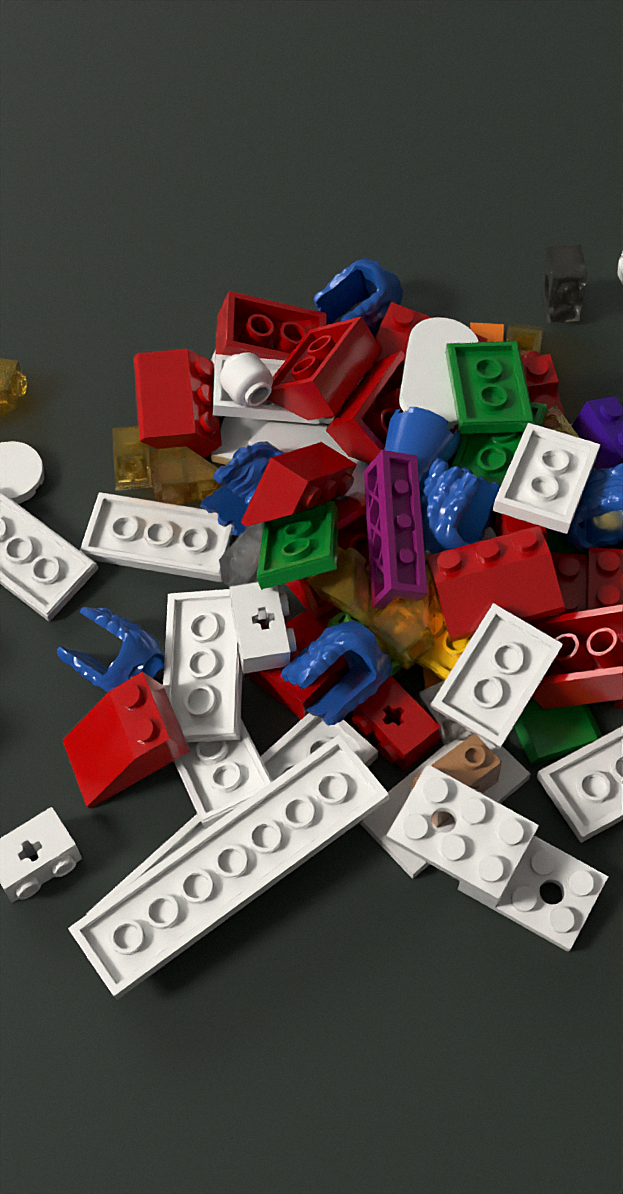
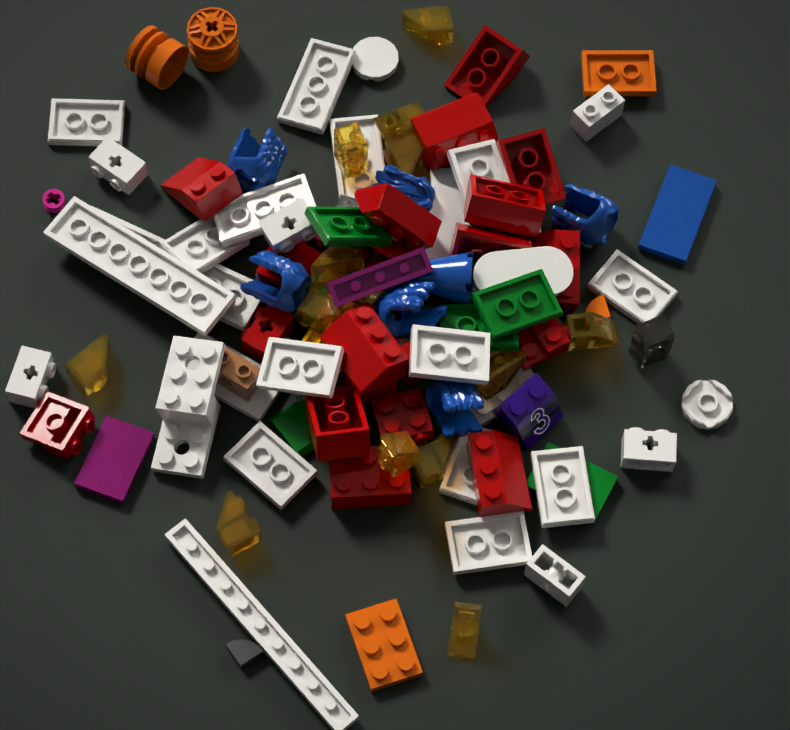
camera: 65 degrees right, 5 degrees up
(36, 969) = (55, 194): none -> dark pink bush
(88, 346) = (487, 66): none -> red slope
(159, 524) = (350, 150): none -> clear yellow brick
(161, 220) = (624, 70): none -> orange plate
(211, 252) = (597, 112): none -> white brick
(246, 379) = (469, 159): white head -> none
(370, 1115) = (30, 376): none -> white brick
(371, 990) = (90, 366): none -> clear yellow slope
(382, 222) = (677, 214): none -> blue tile
(460, 1071) = (59, 425): none -> red plate
(471, 291) = (632, 288): none -> white tile
(538, 1002) = (114, 459): none -> magenta tile

